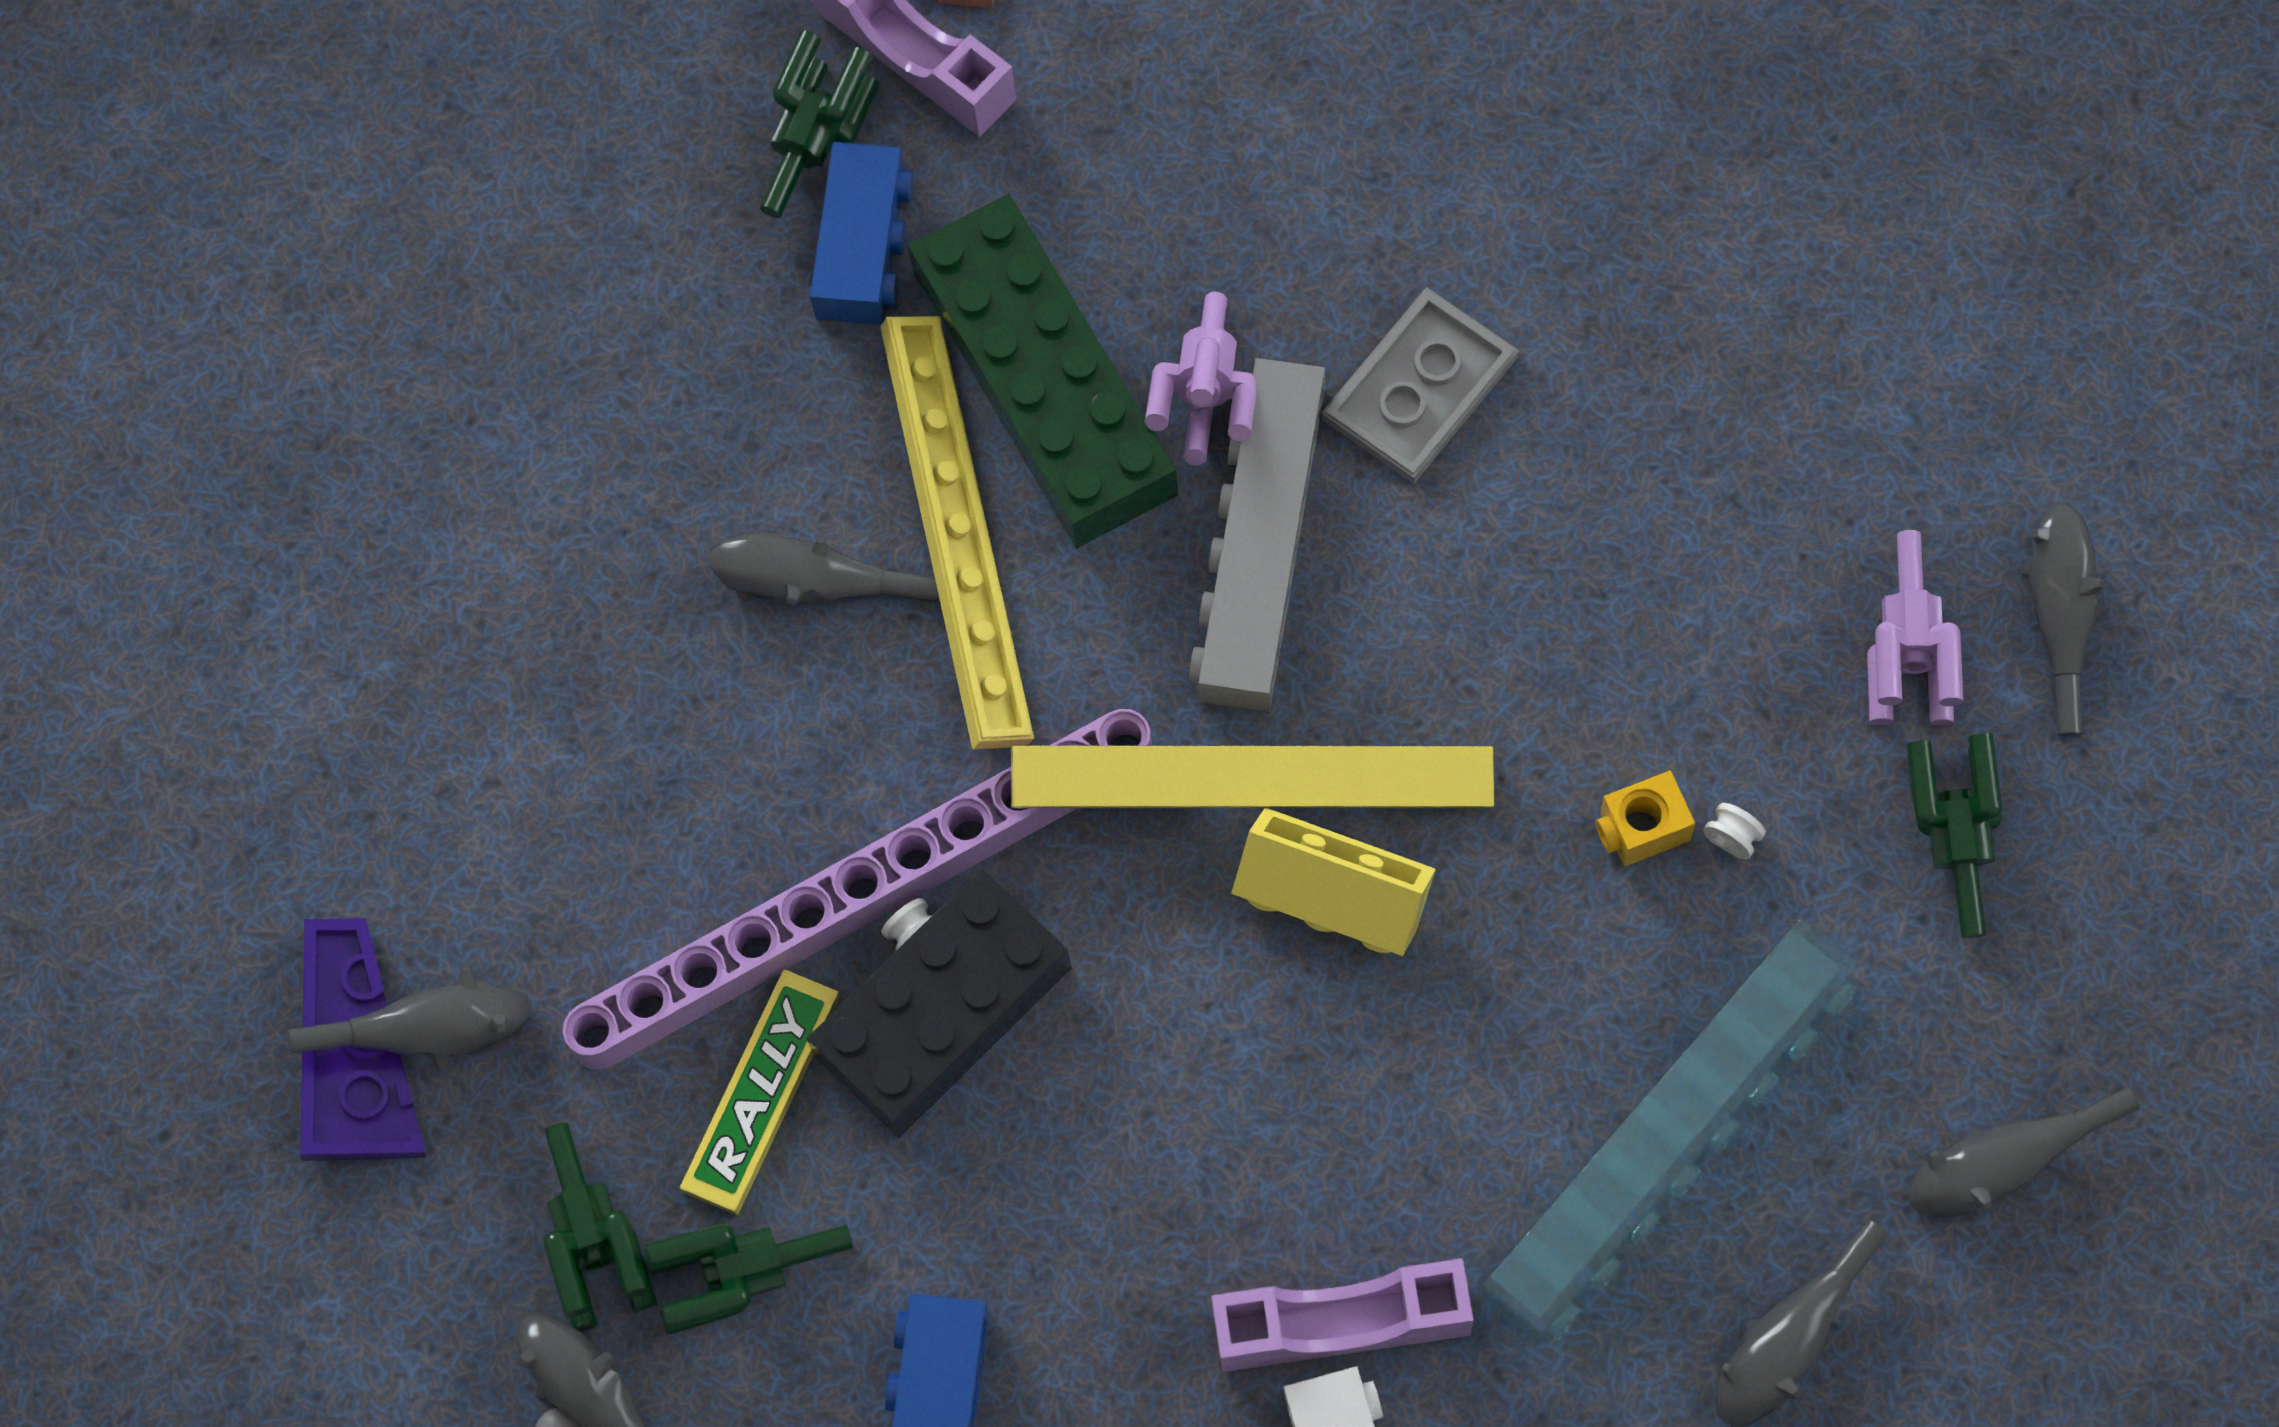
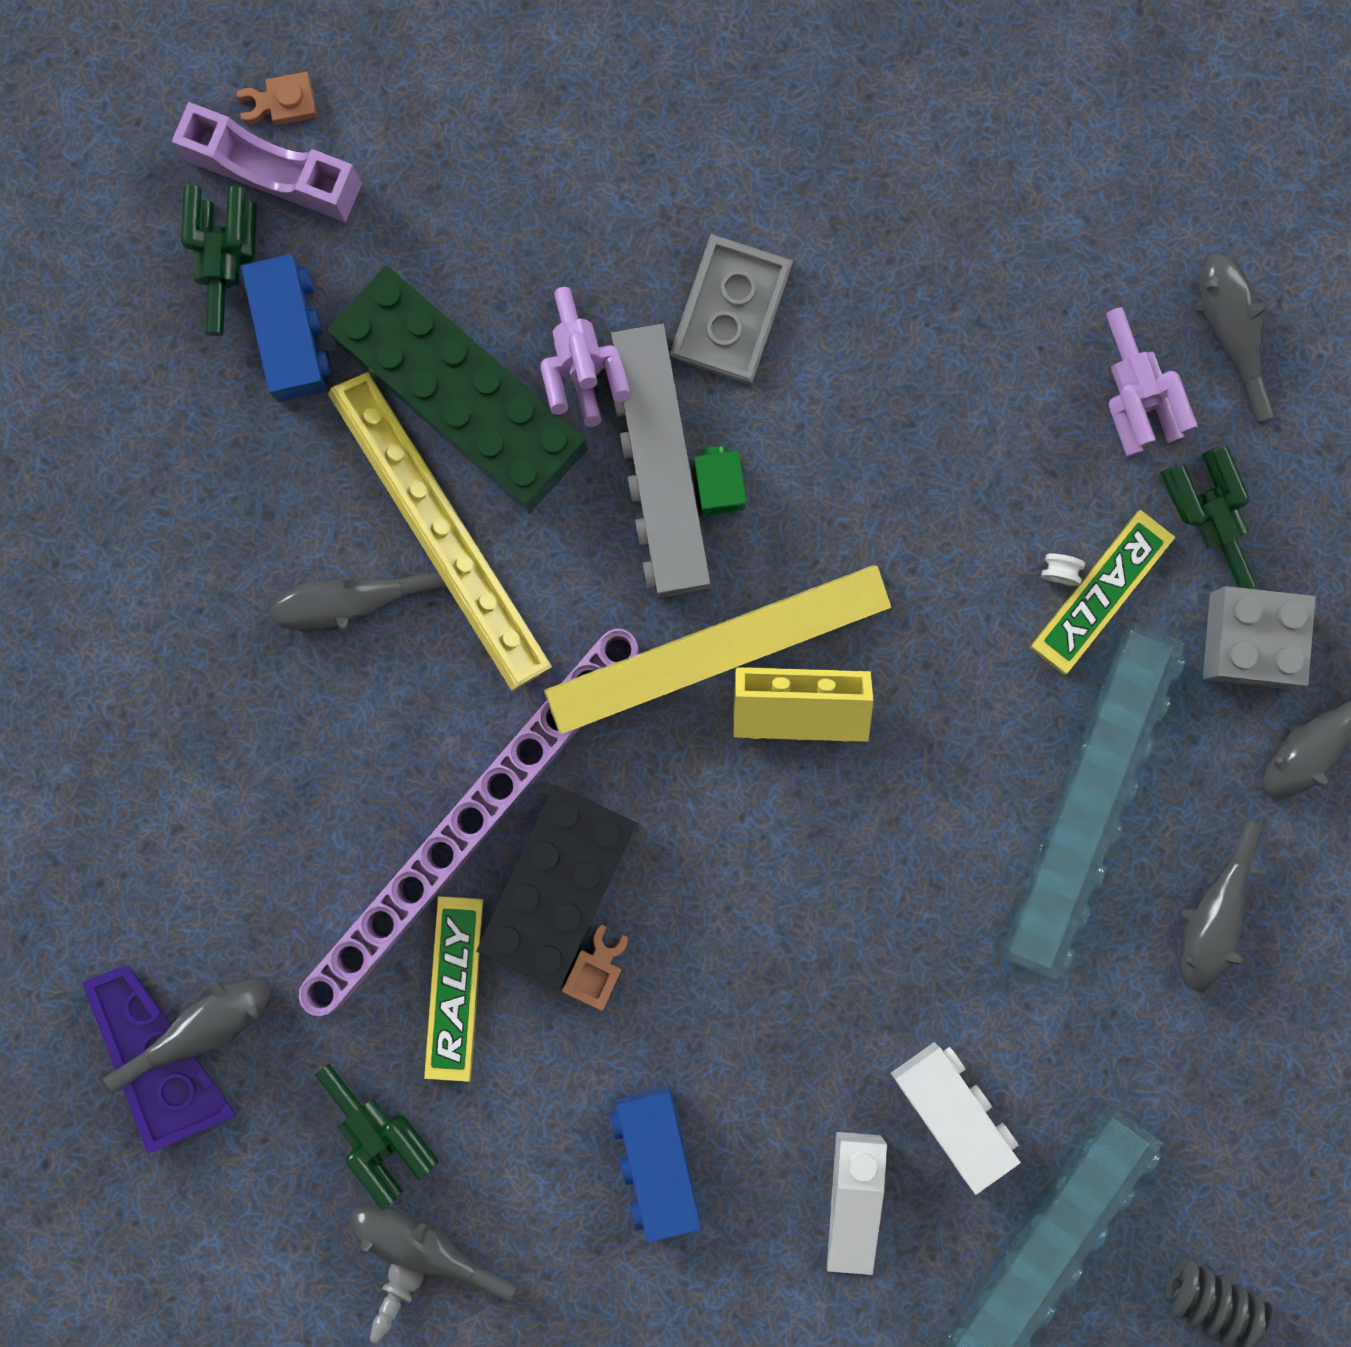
camera: 25 degrees left, 15 degrees up
(734, 1268) = (483, 1126): dark green plant -> none
(906, 921) = (516, 836): white bush -> none
(944, 1132) = (592, 975): none -> nougat plate
(1300, 1325) = (934, 1000): lavender arch -> none
(1327, 582) = (719, 481): none -> green brick
(1660, 799) = (1015, 572): yellow brick -> none
(1777, 879) = (1102, 592): none -> tile
(1963, 997) = (1259, 638): none -> light grey brick

